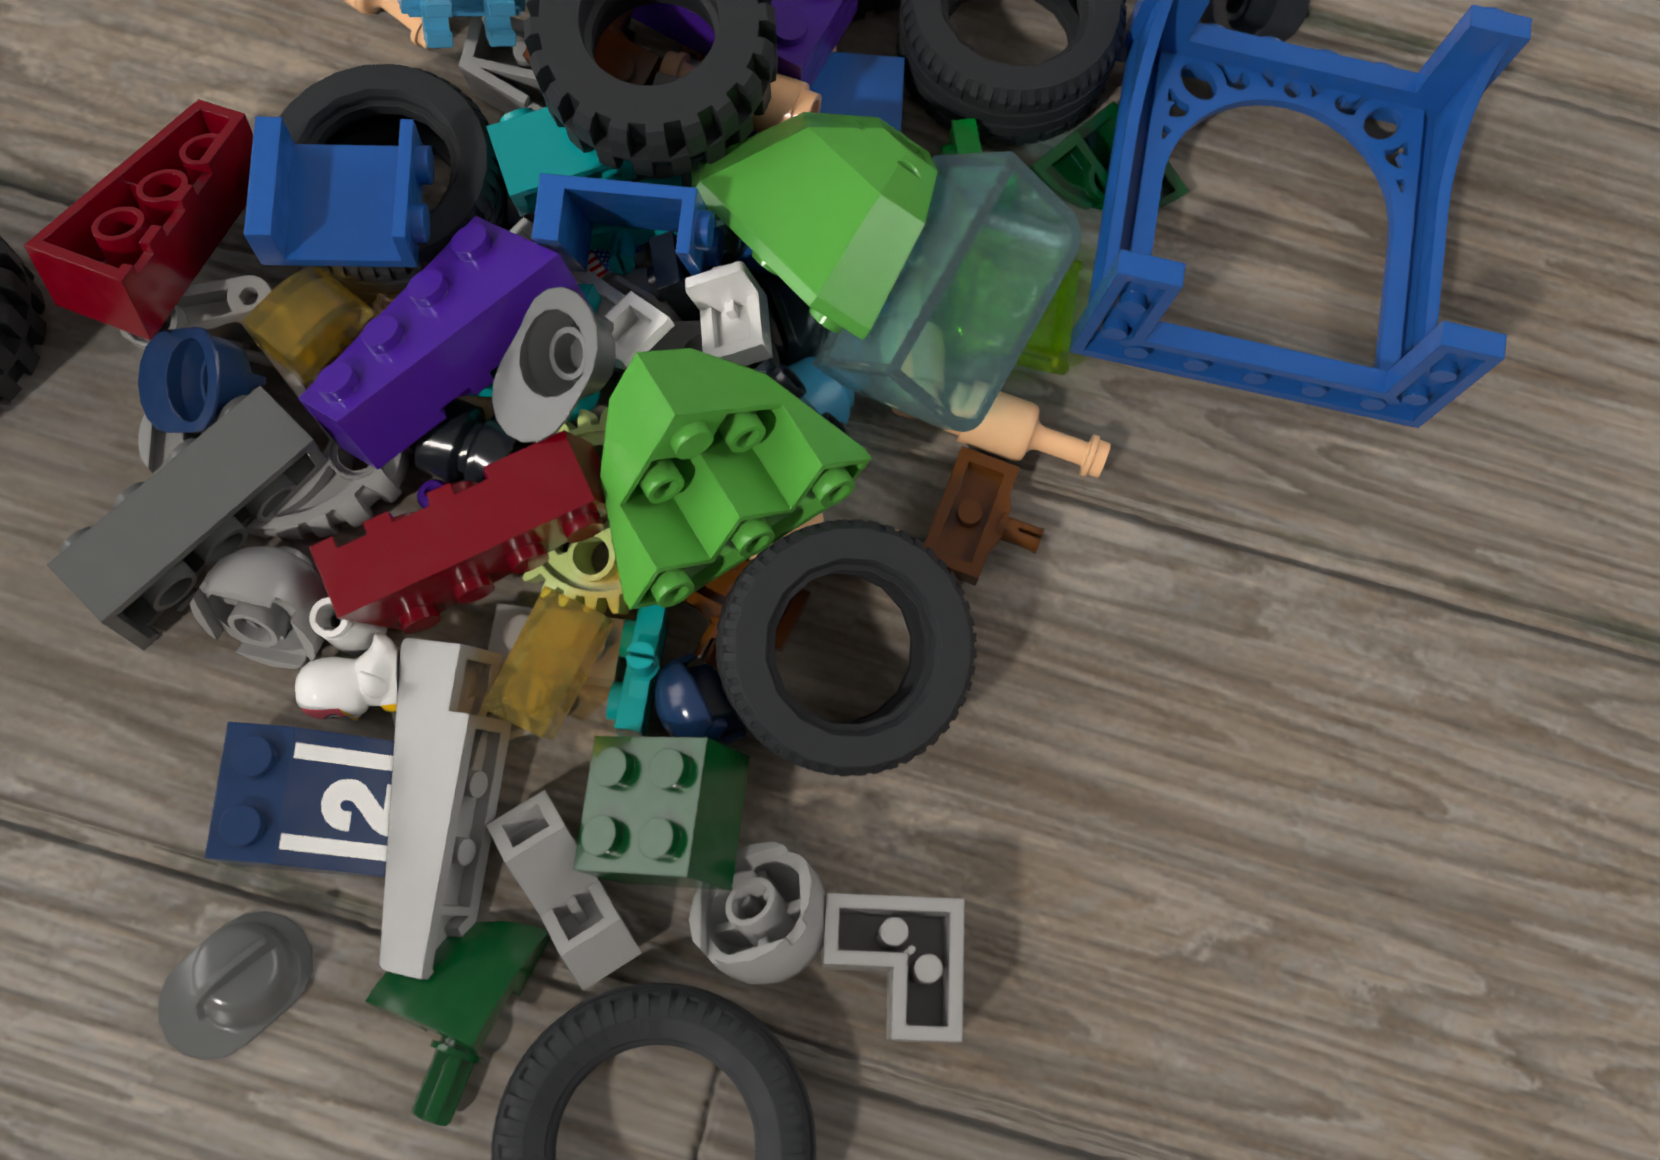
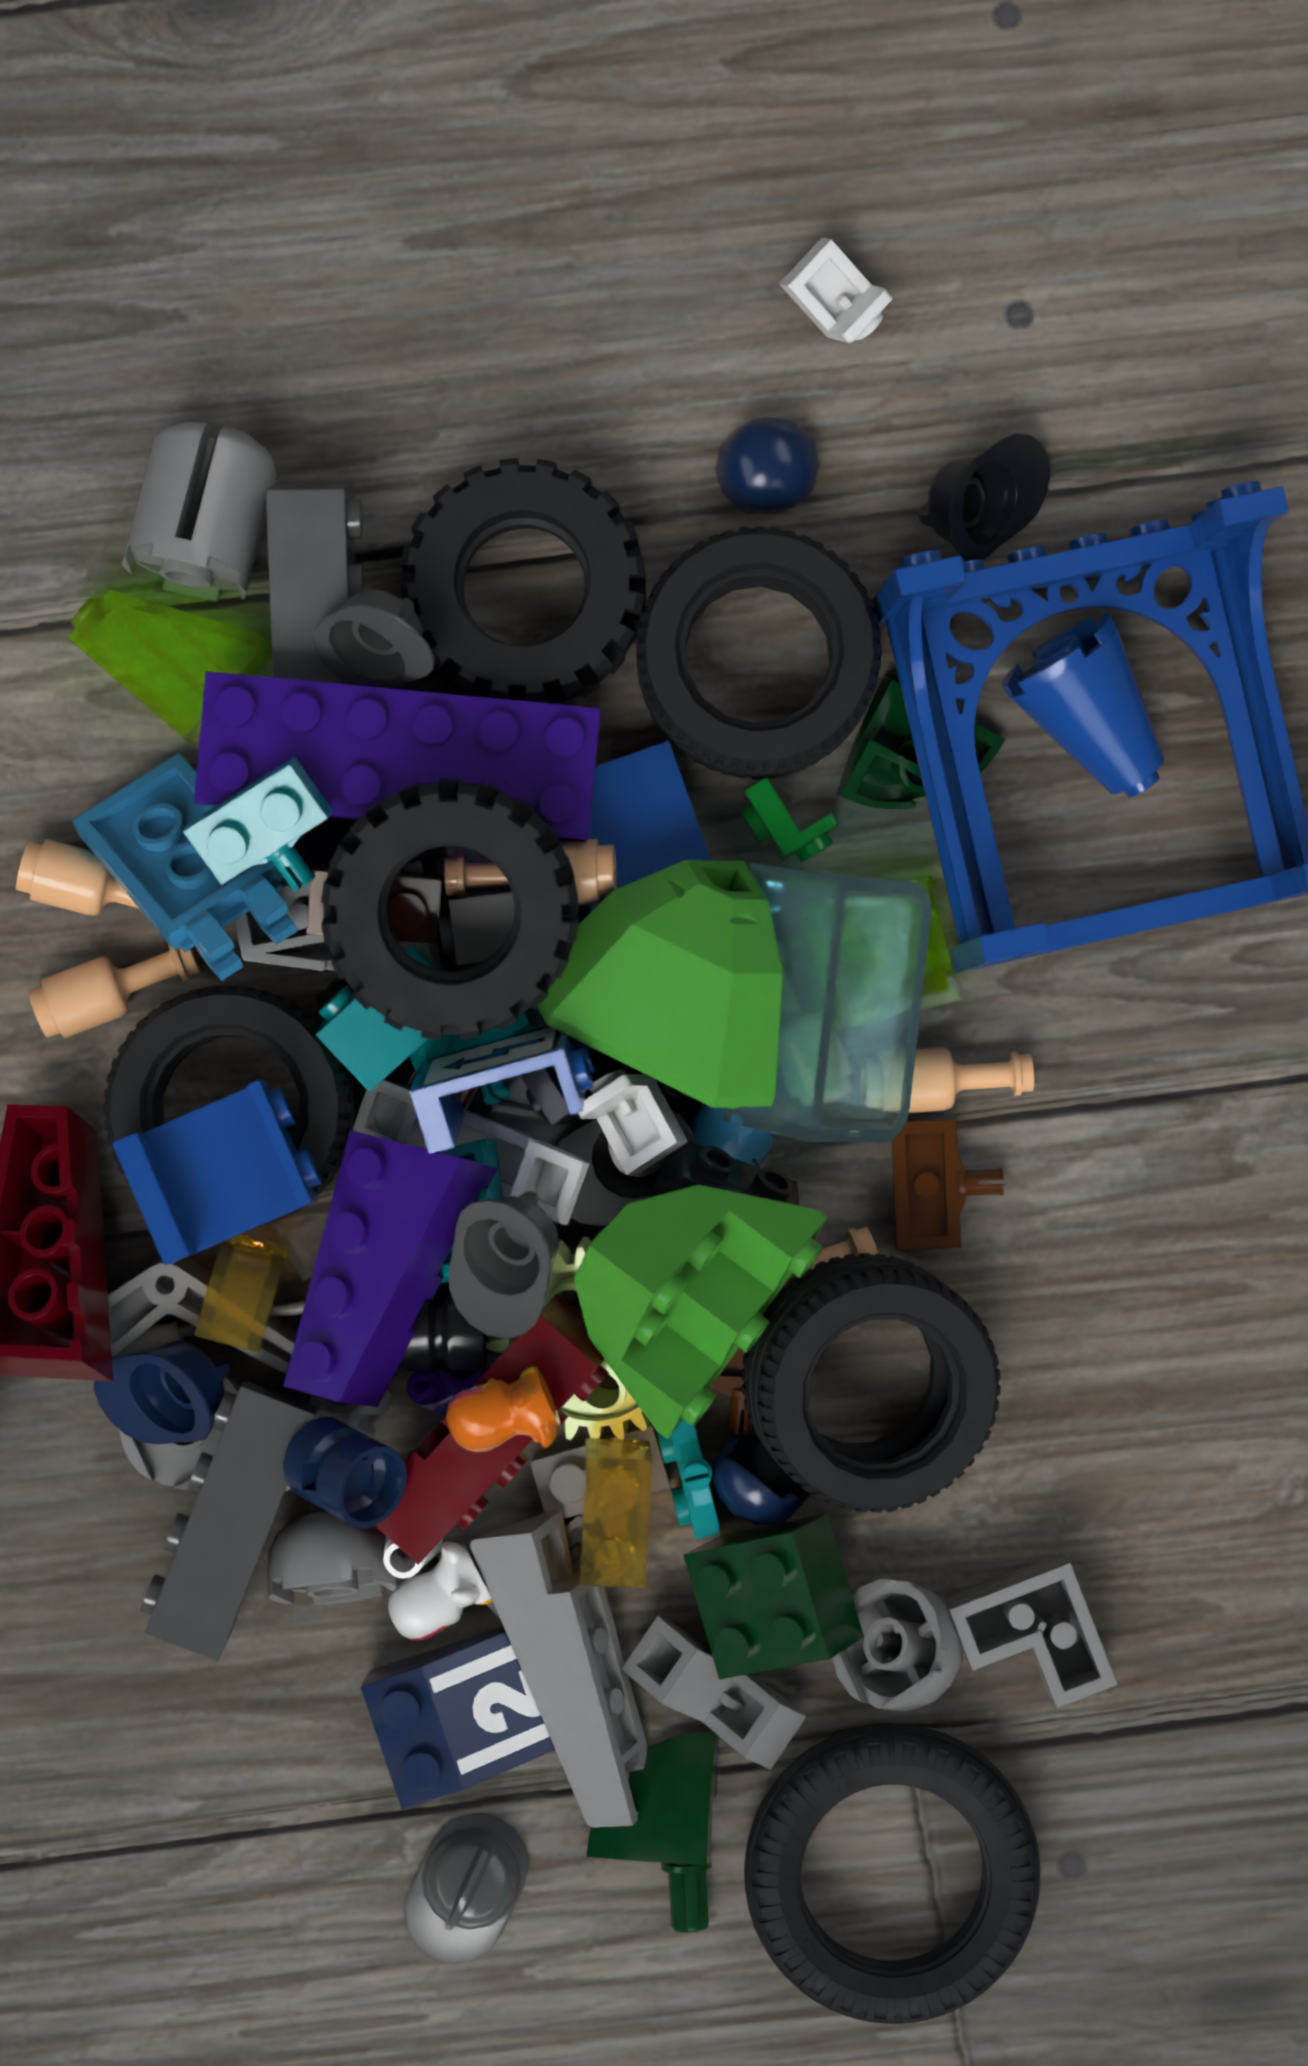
camera: 15 degrees left, 15 degrees up
(305, 58) = (100, 991): none -> light nougat piece
(325, 506) = (345, 1472): none -> dark blue wheel
(480, 490) = (498, 1411): none -> orange animal
(1277, 180) = (1091, 705): none -> blue cone

